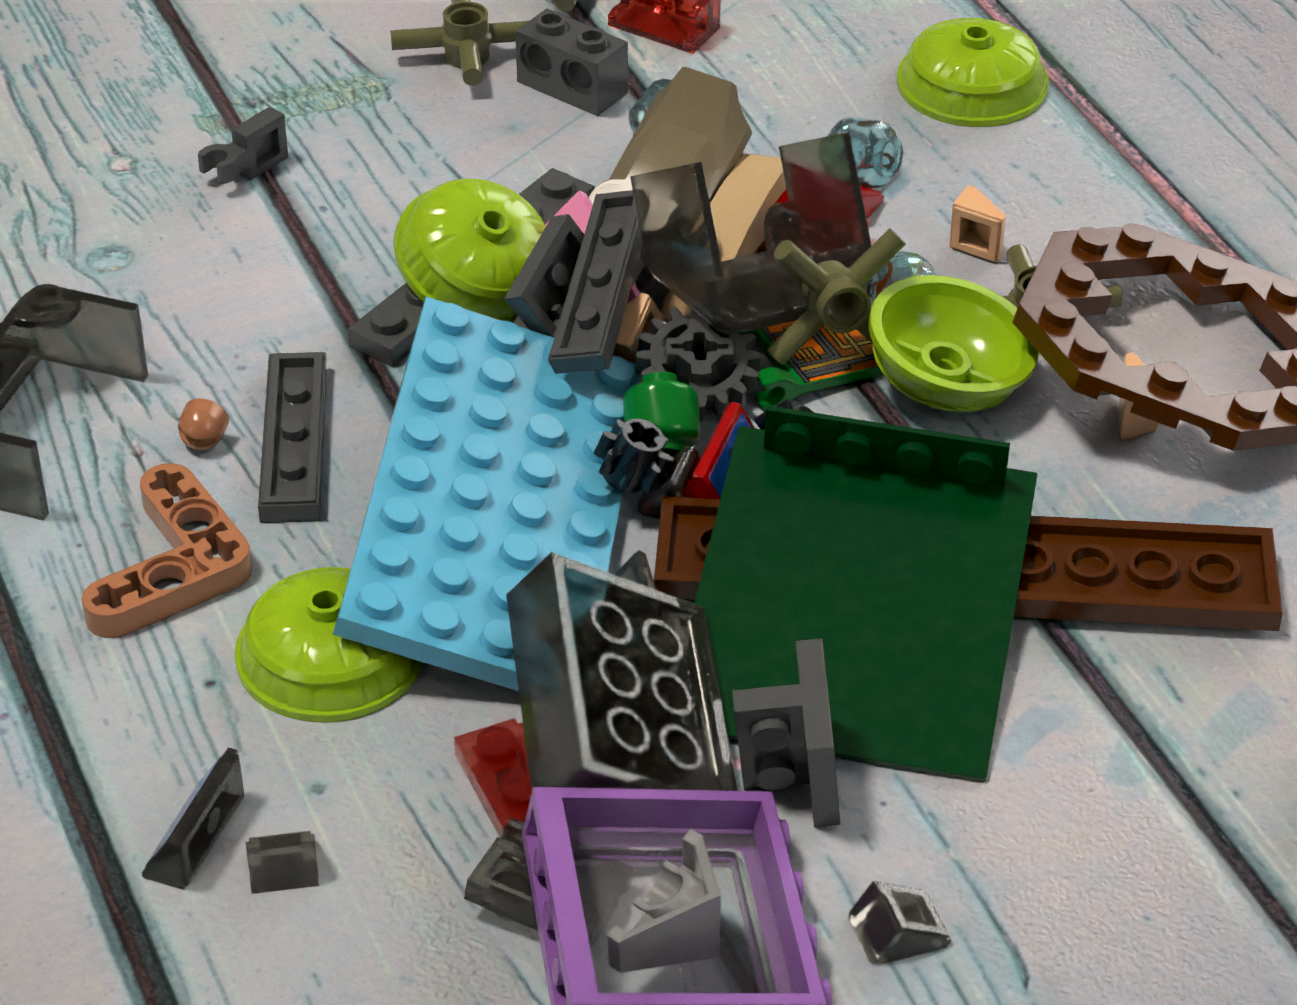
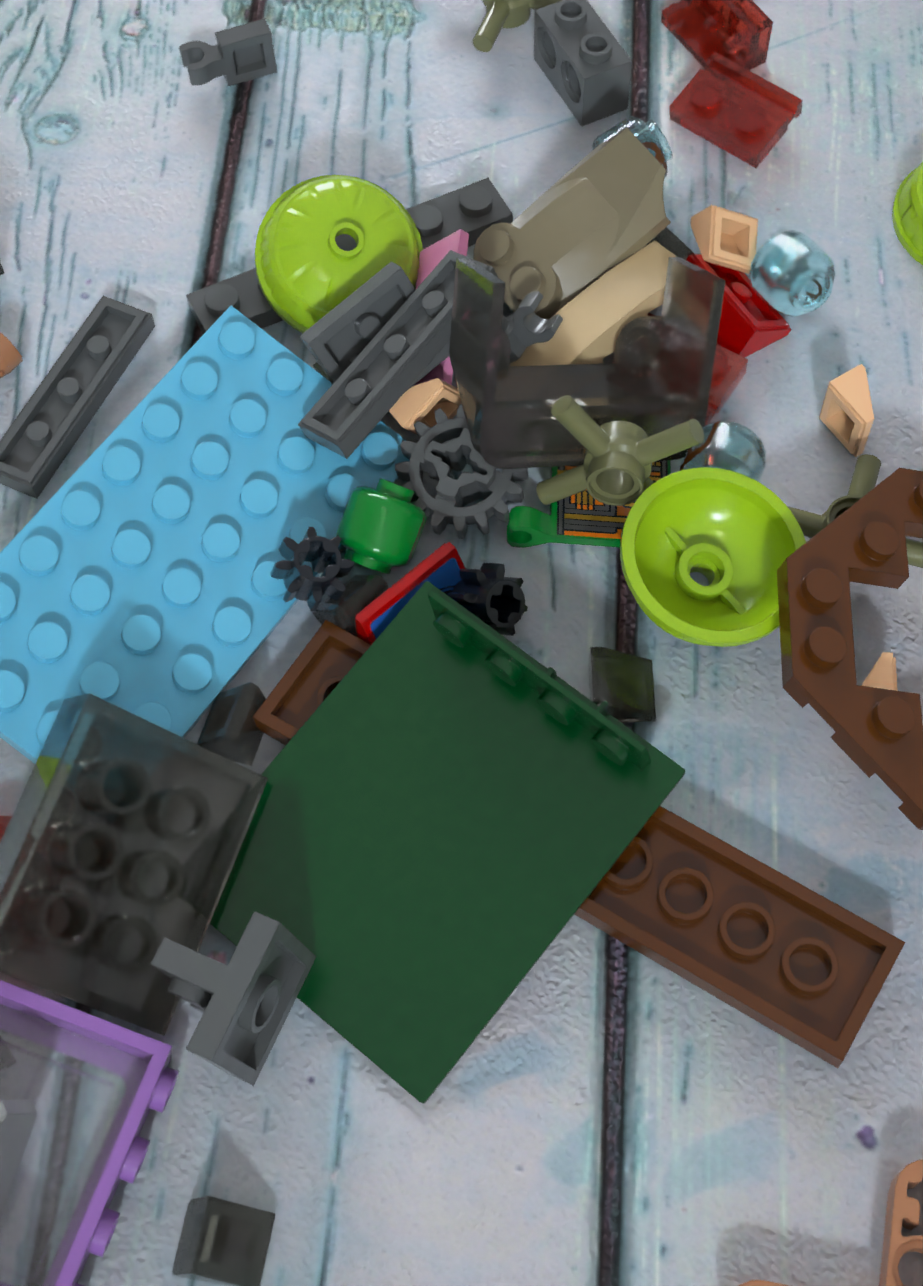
camera: 30 degrees right, 20 degrees up
(732, 55) = (735, 109): none -> clear red plate
(779, 133) = (725, 237): none -> light nougat slope

